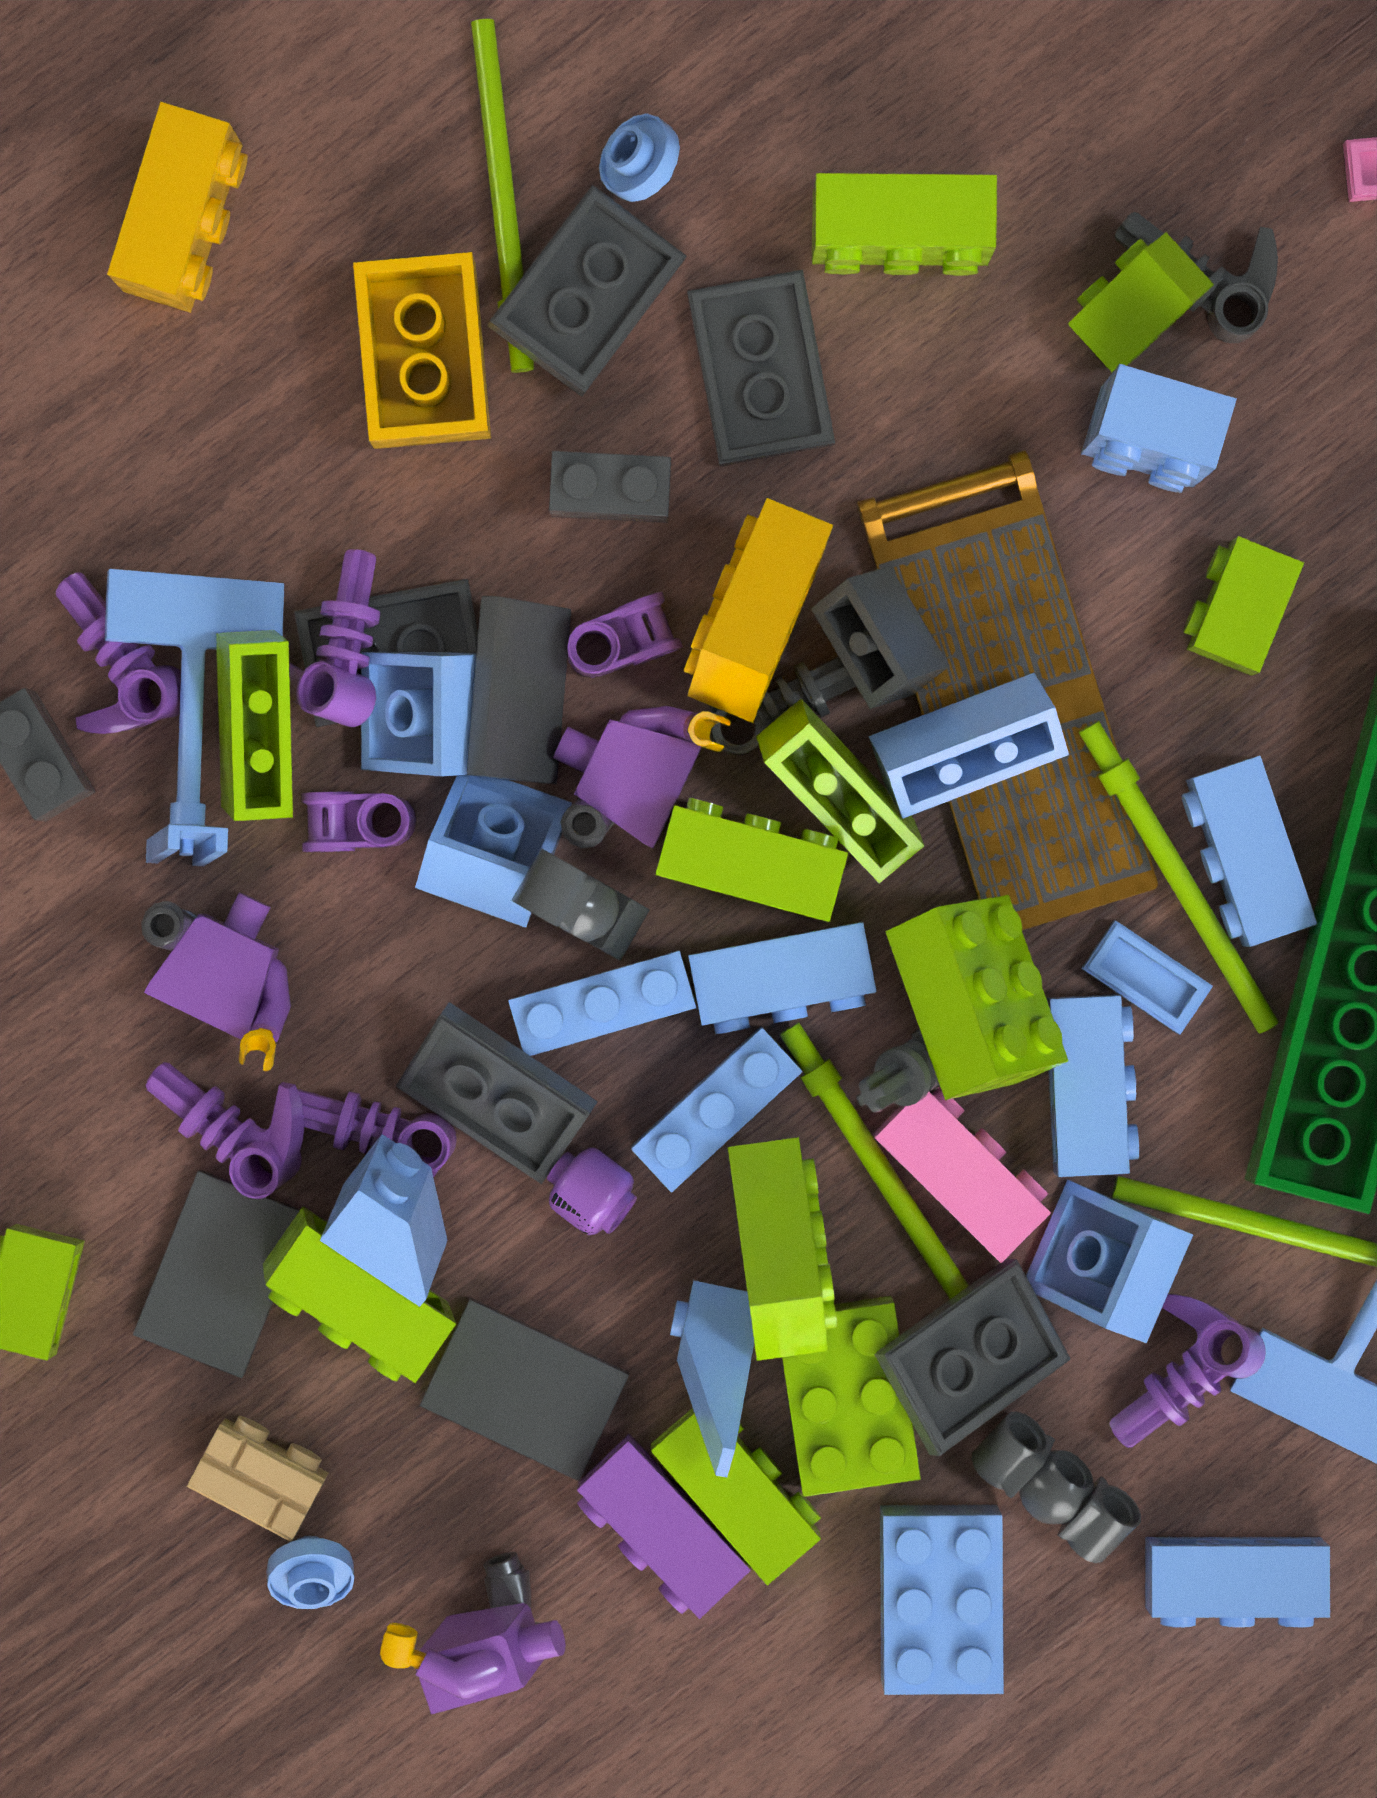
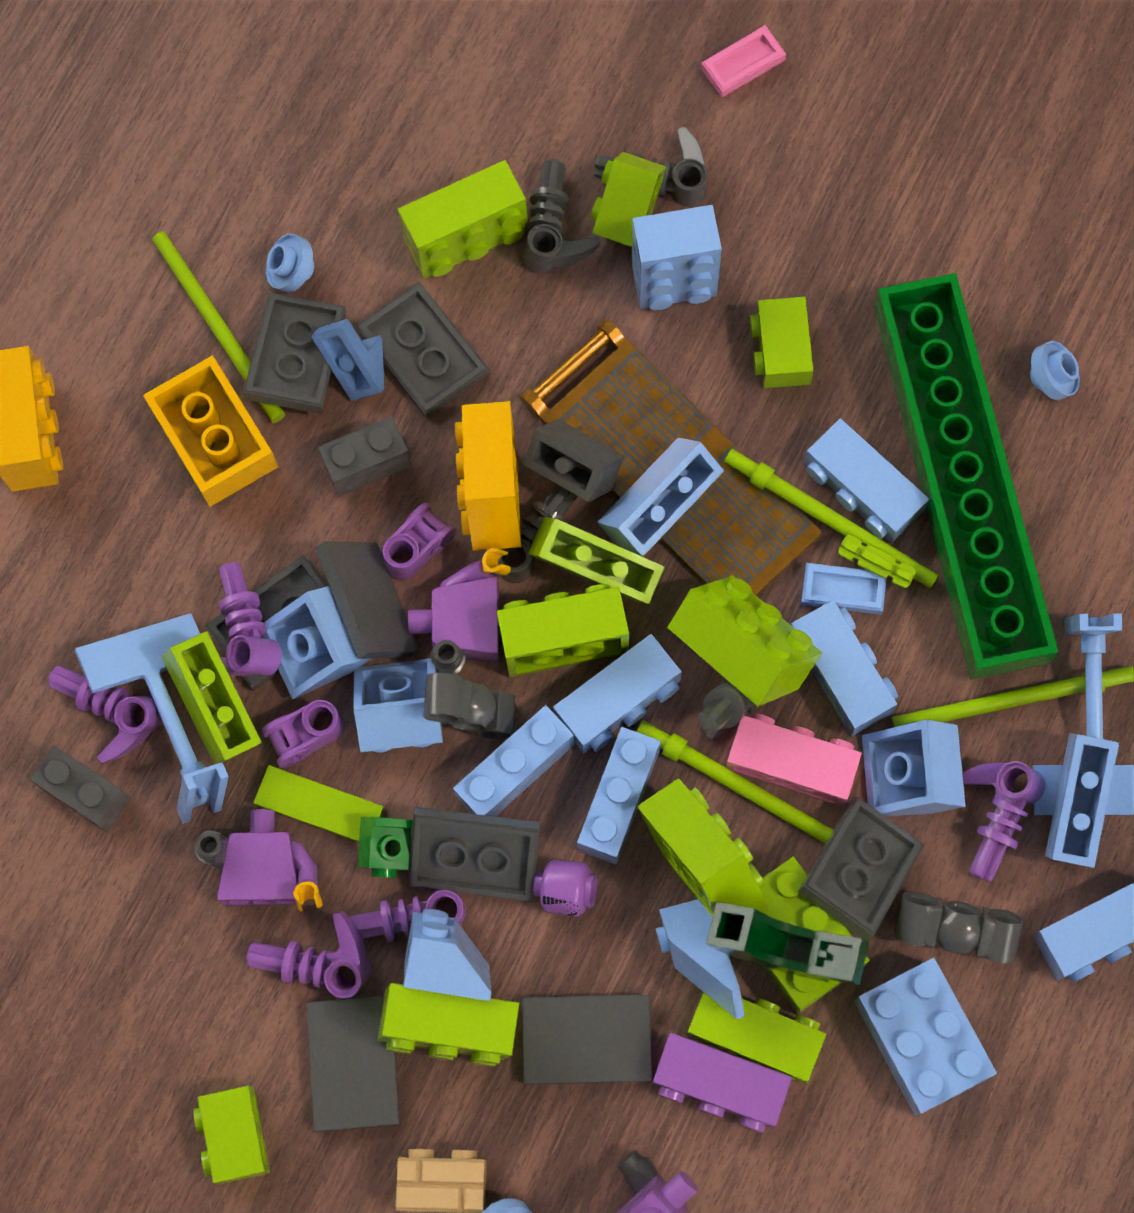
camera: 25 degrees left, 15 degrees down
(330, 925) = (314, 803): none -> lime tile
(385, 1007) = (373, 837): none -> green brick
(659, 343) = (353, 361): none -> medium blue slope
(823, 1422) = (786, 947): none -> dark green arch
(1011, 276) = (547, 225): none -> dark grey piece
(1207, 967) = (877, 561): none -> lime axle
(1295, 1412) = (1081, 800): none -> light blue brick

